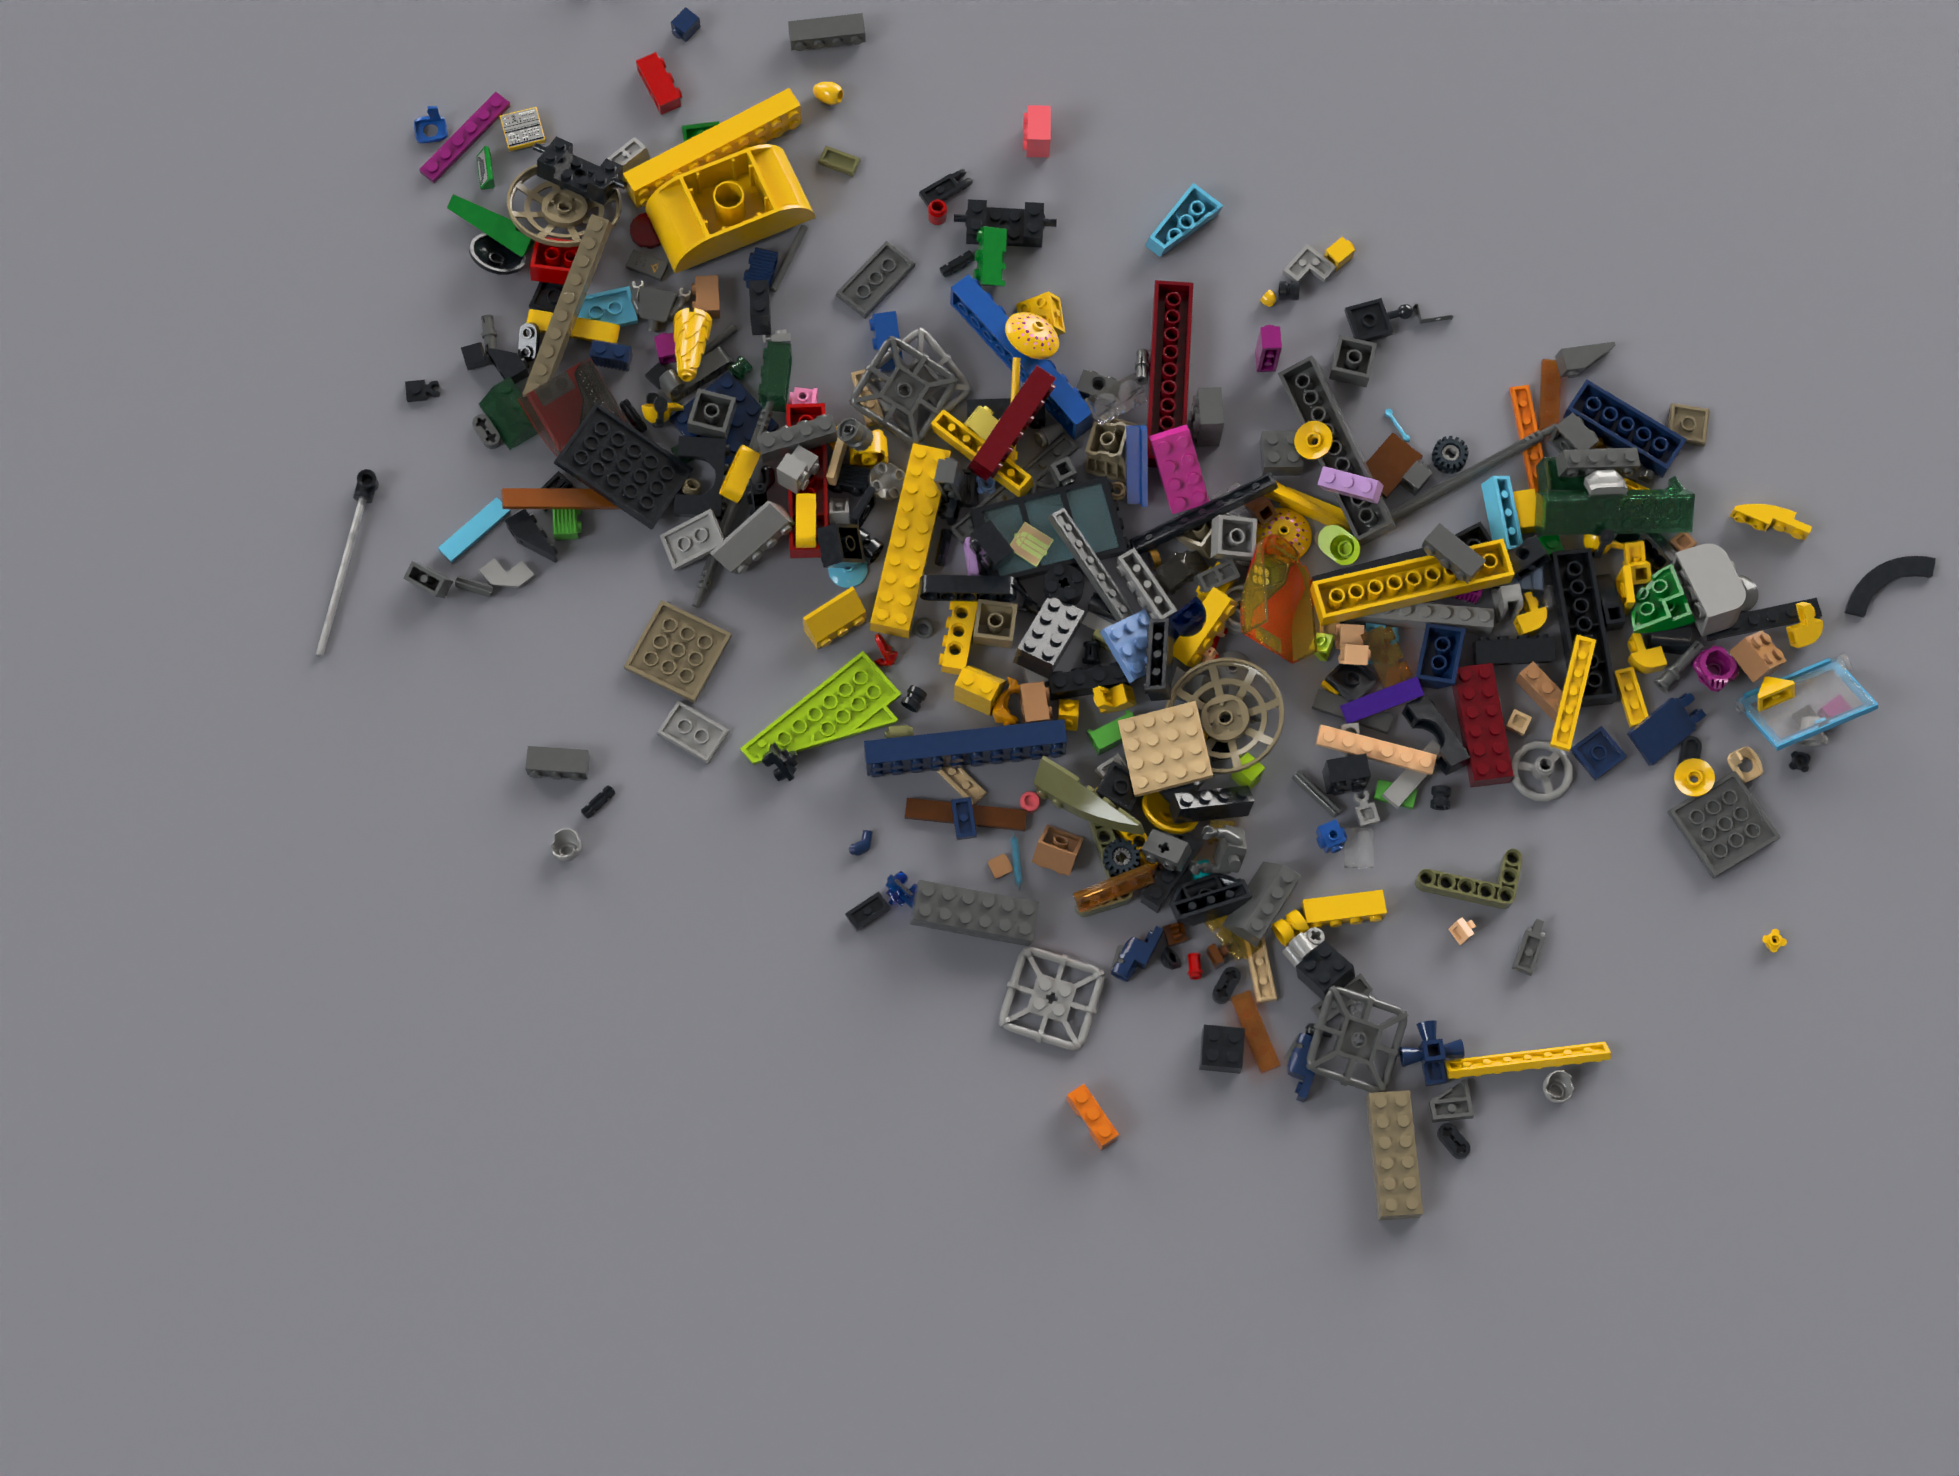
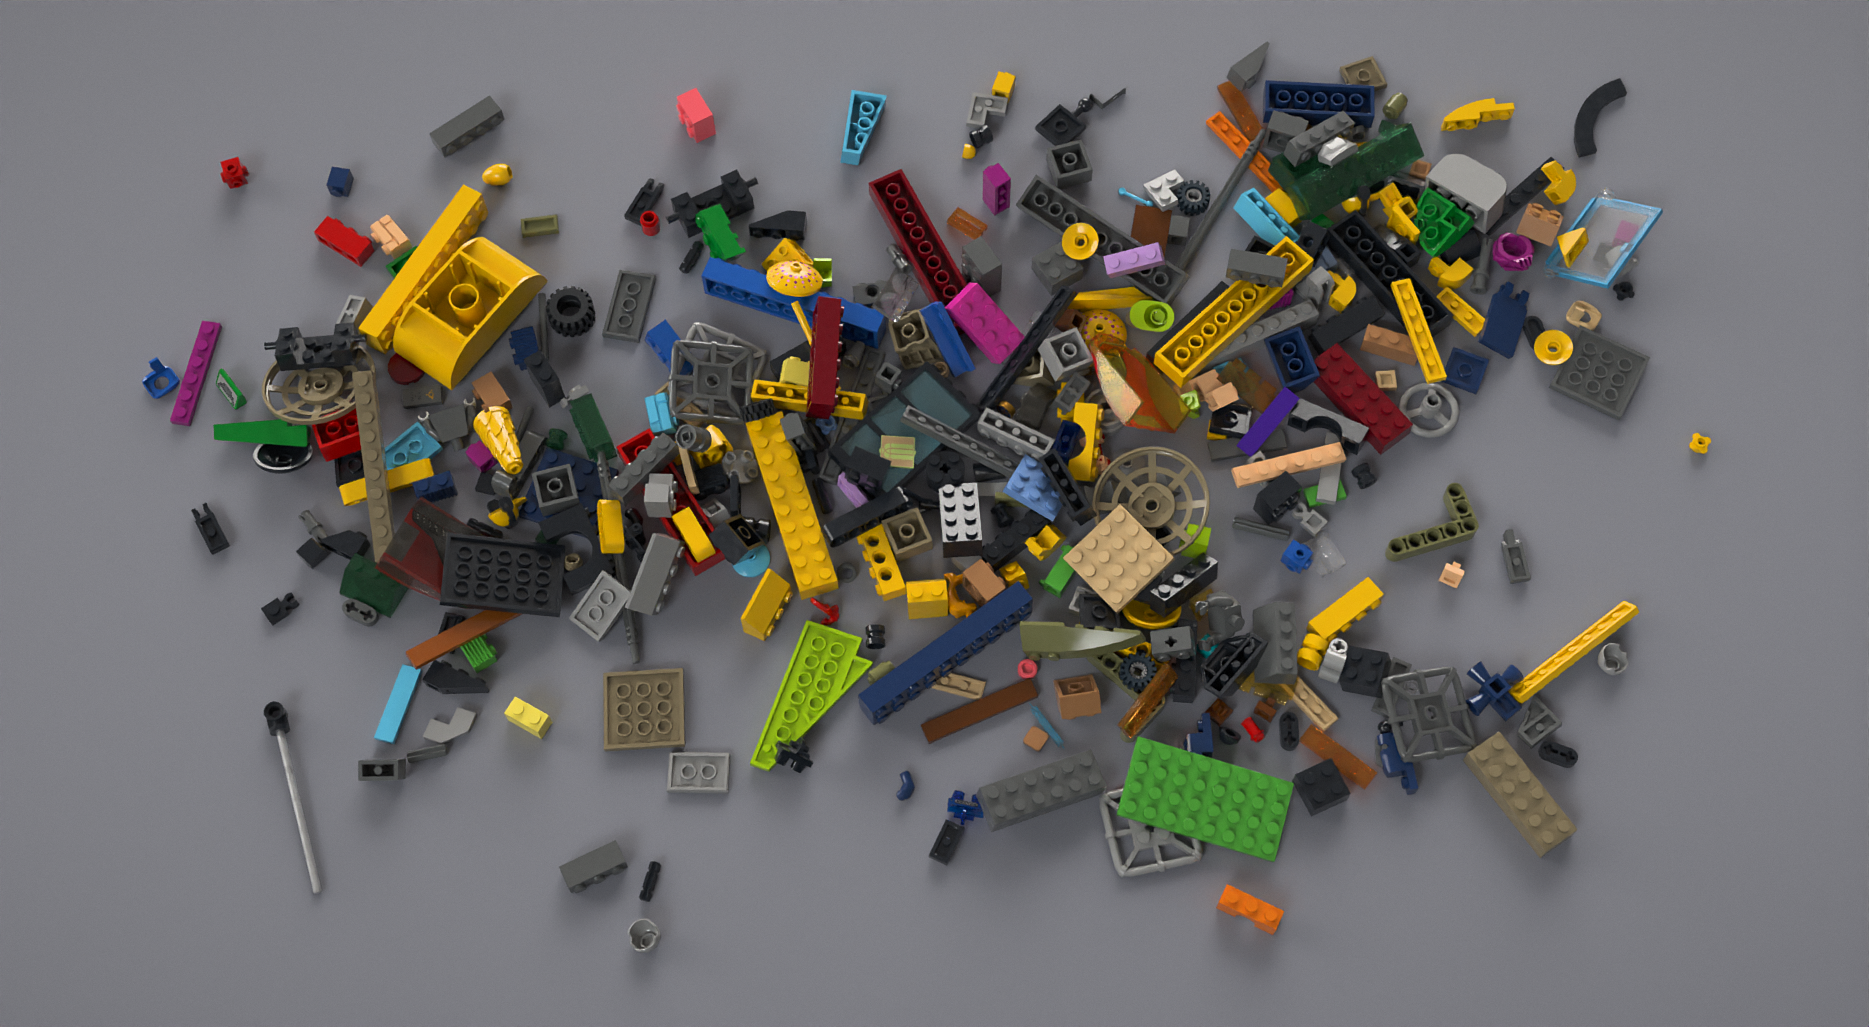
camera: 25 degrees left, 5 degrees down
(400, 288) = (211, 530): none -> black hinge
(522, 129) = (244, 339): light grey tile -> none
(529, 342) = (357, 514): plate -> none
(575, 603) = (528, 717): none -> light yellow brick
(701, 101) = (390, 236): none -> light nougat brick
(810, 396) = (622, 432): bright pink brick -> none
(819, 243) = (570, 324): none -> black tyre
(841, 393) = (660, 416): none -> medium azure brick
(928, 439) = (757, 410): none -> black tyre
(963, 818) = (981, 714): dark blue plate -> none
(1057, 278) = (782, 225): none -> black slope
(1067, 341) = (824, 267): none -> lime bracket
(1112, 1001) = (1205, 799): none -> bright green plate
(1232, 380) = (975, 233): none -> clear orange tile
(1425, 429) = (1161, 189): none -> plate
(1698, 469) = (1395, 106): none -> olive brick

